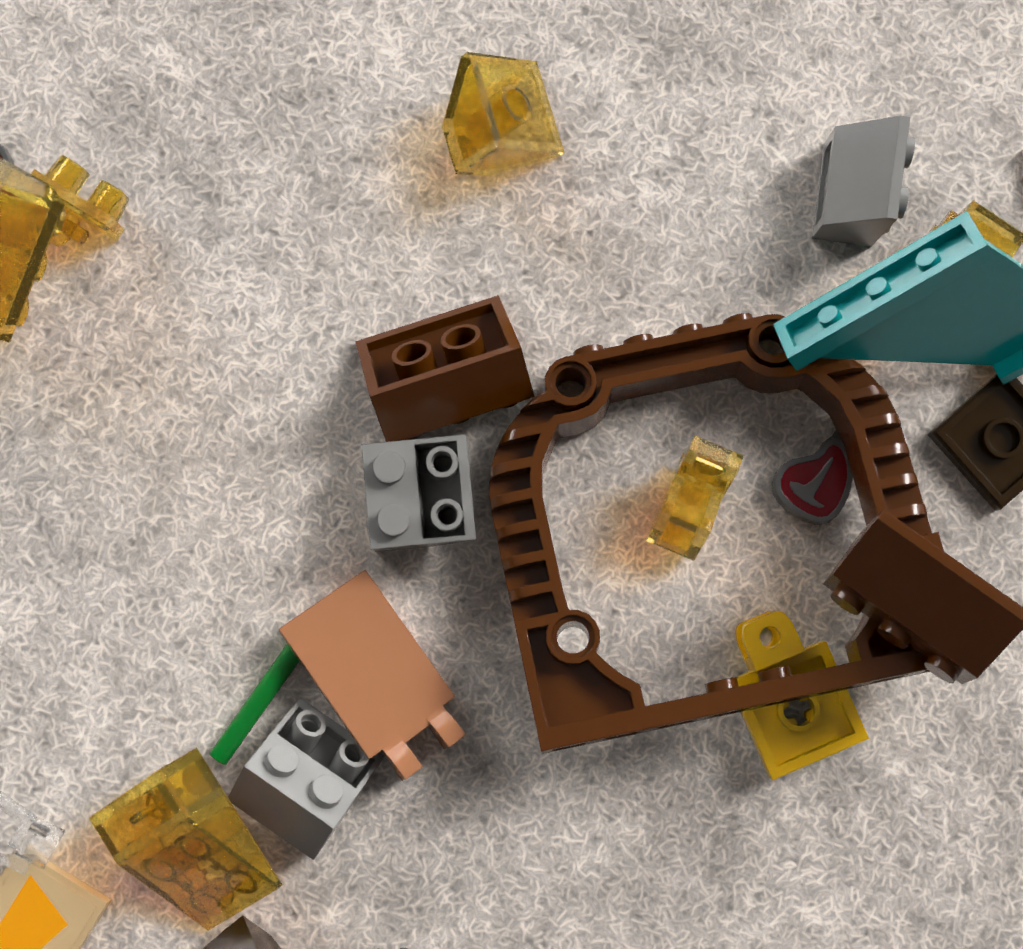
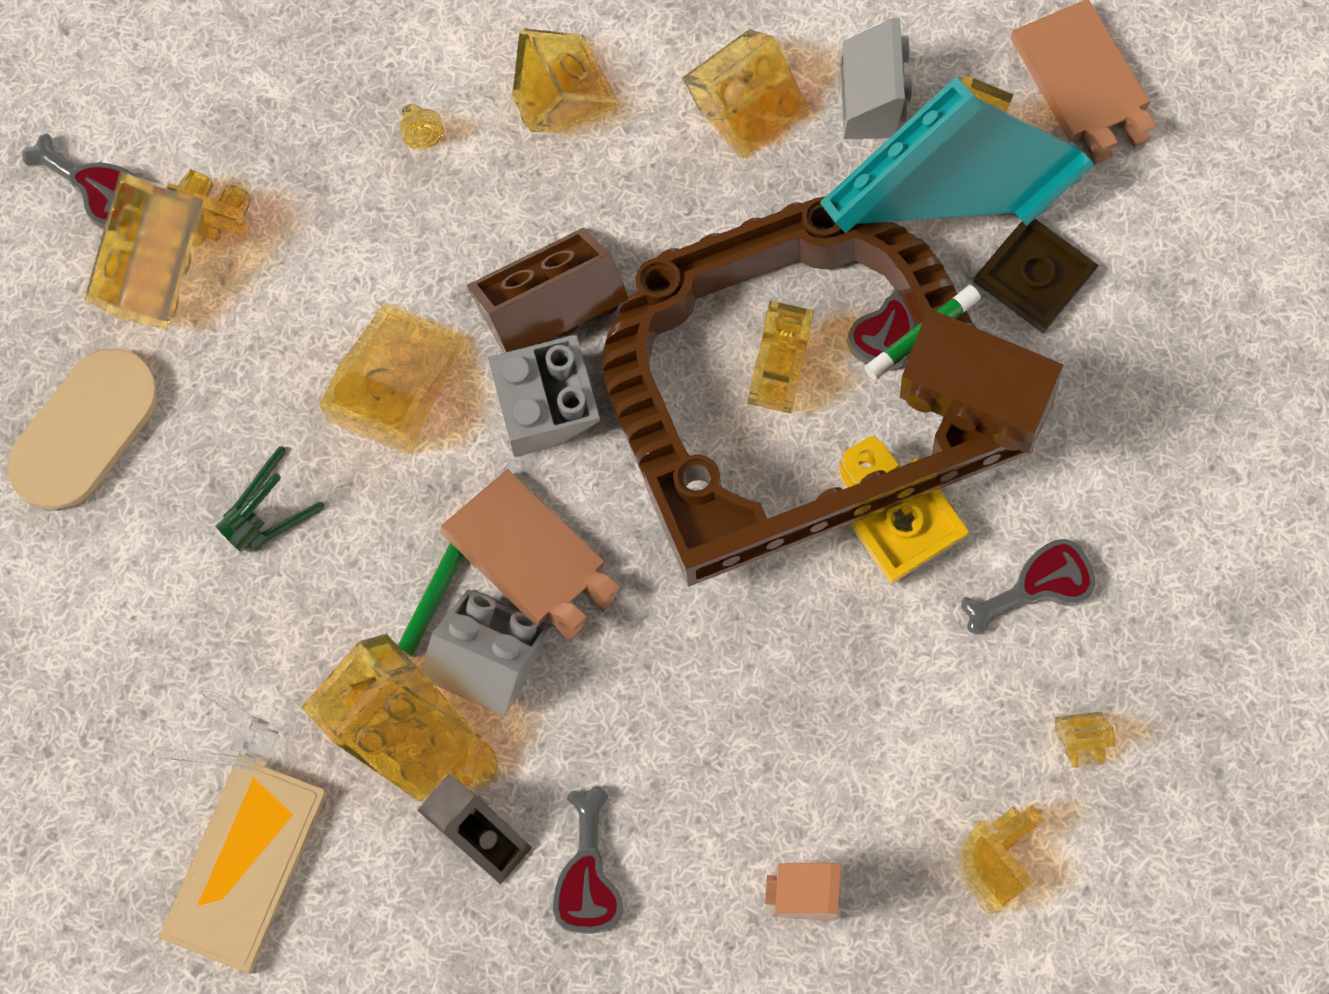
camera: 10 degrees left, 10 degrees down
(63, 580) = (242, 524): none -> dark green plant
(254, 438) = (391, 378): none -> clear yellow slope
(279, 906) = (477, 766): none -> clear yellow tile
(333, 144) = (420, 127): none -> clear yellow tile
(712, 164) = (747, 91): none -> clear yellow slope
(864, 510) = (903, 347): none -> bar
(951, 794) = (1052, 573): none -> dark grey piece

